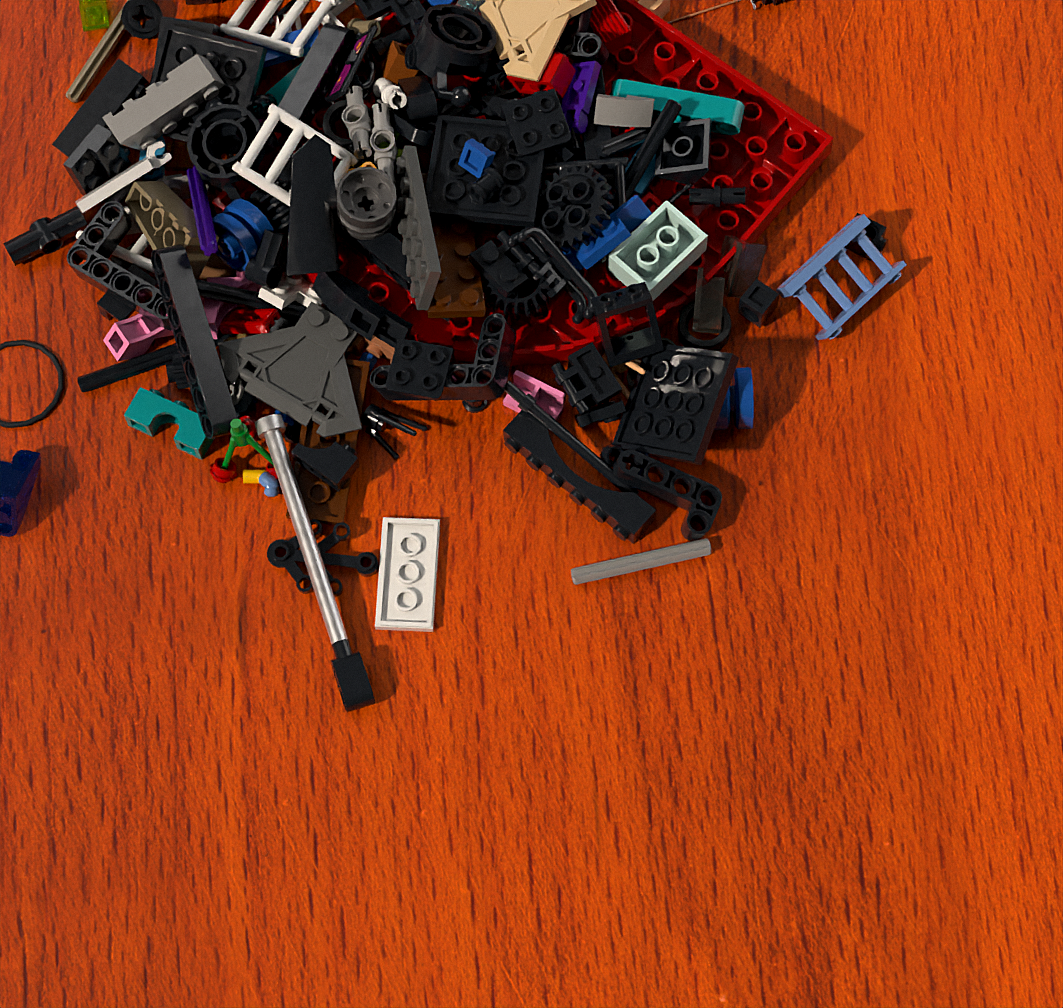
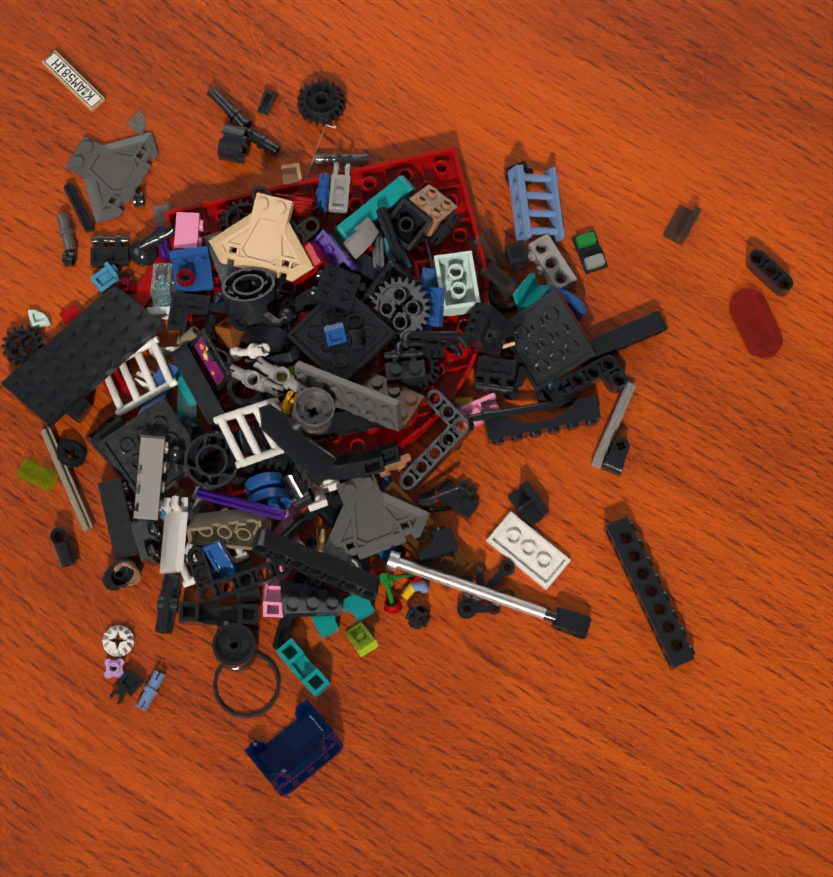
camera: 60 degrees left, 5 degrees up
(29, 88) = (64, 548): none -> black piece
(40, 163) = (121, 574): none -> black piece
(44, 336) = (239, 658): none -> black wheel
(69, 293) = (218, 615): none -> black arch
(79, 411) = (303, 668): none -> teal arch
(130, 242) = (220, 559): none -> blue tile
(151, 369) = (307, 601): none -> black wing
(156, 466) = (361, 639): none -> lime slope
(229, 505) = (418, 616): none -> black gear
(249, 321) = (319, 530): red tile -> none
(411, 455) = (461, 500): none -> black hinge
(419, 369) = (426, 456): black bracket -> none
(463, 534) = (528, 504): none -> black panel
(504, 654) = (673, 657): none -> black brick
(526, 368) = (461, 401): none -> yellow arm
(598, 590) = (615, 459): none -> black piece
(651, 39) = (323, 192): none -> blue pin
(671, 53) = (339, 190): none -> light grey hinge
(721, 40) = (331, 158): none -> dark grey axle
(726, 341) = (529, 292): none -> teal panel
(733, 161) = (433, 205): none -> medium nougat bracket
(762, 495) = (628, 335): none -> black beam
(783, 364) = (552, 256): none -> light grey brick
(839, 385) = (589, 252): none -> piece
(910, 637) = (755, 323): none -> clear red tile
(965, 463) = (681, 224): none -> clear smoke panel
(991, 593) = (765, 264): none -> black beam

